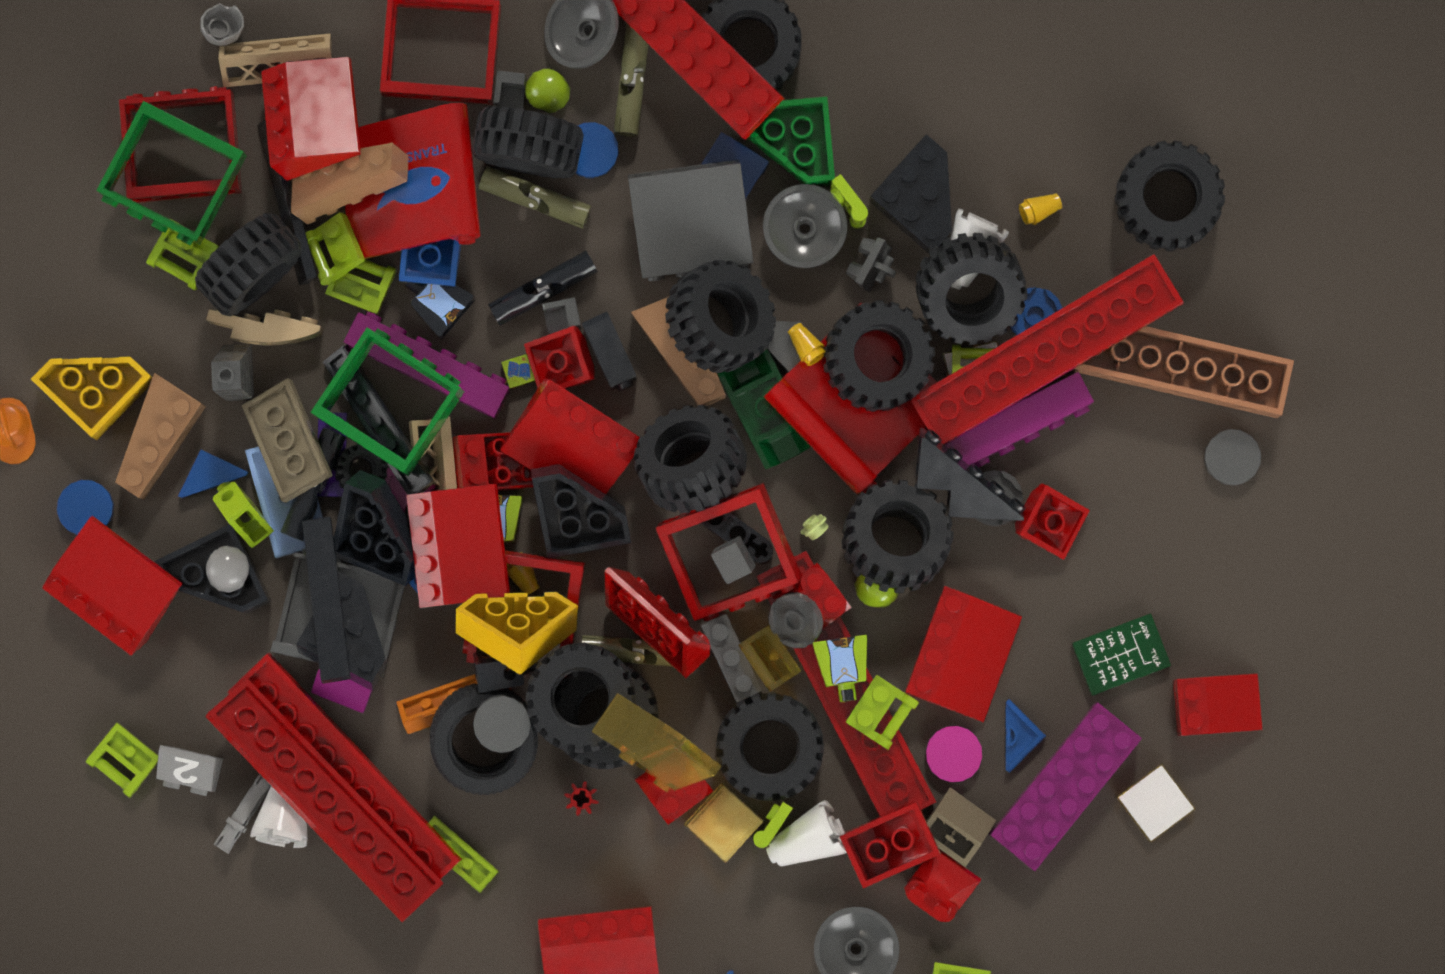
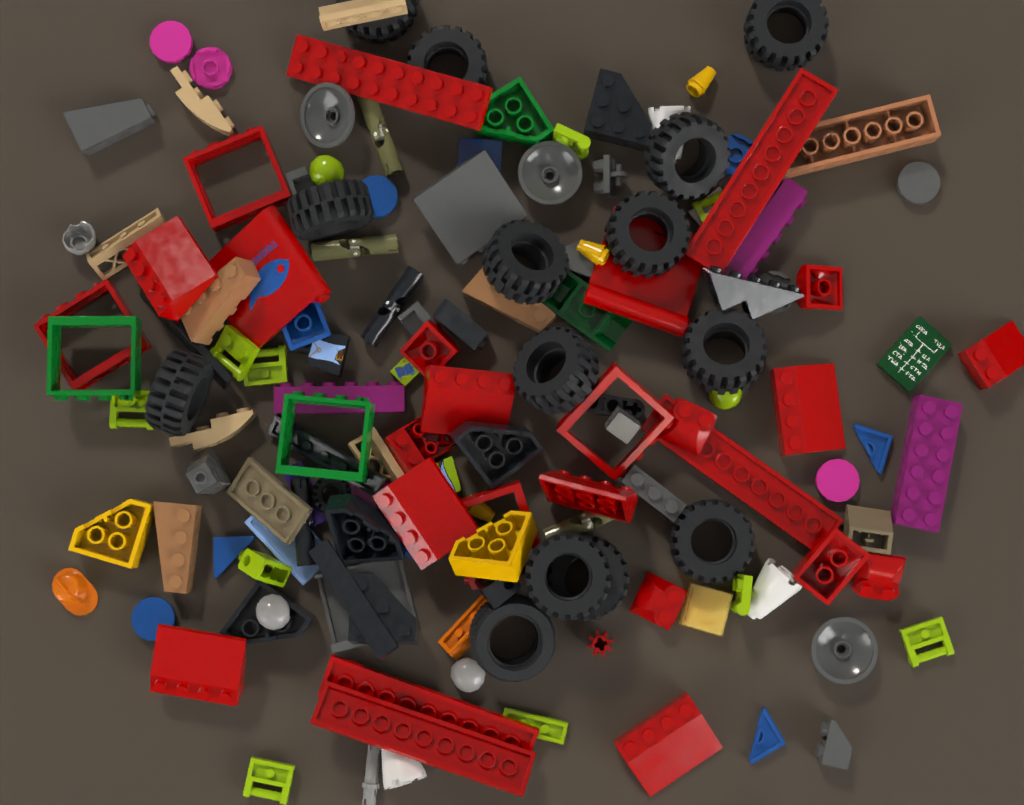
camera: 25 degrees left, 0 degrees up
(189, 769) = (316, 764): light grey slope -> none
(343, 692) = (401, 655): magenta slope -> none
(411, 757) = (467, 675): none -> light grey hair
(501, 723) = (521, 622): dark grey tile -> none
(654, 746) = (635, 583): clear yellow windscreen -> none
(769, 658) = (679, 479): clear yellow tile -> none
(795, 620) = (684, 444): dark grey tile -> none
(814, 526) = (662, 374): yellowish green plate -> none
(842, 663) = (732, 457): torso -> none
(873, 707) = (768, 474): lime plate -> none
(1155, 803) = (990, 443): white tile -> none

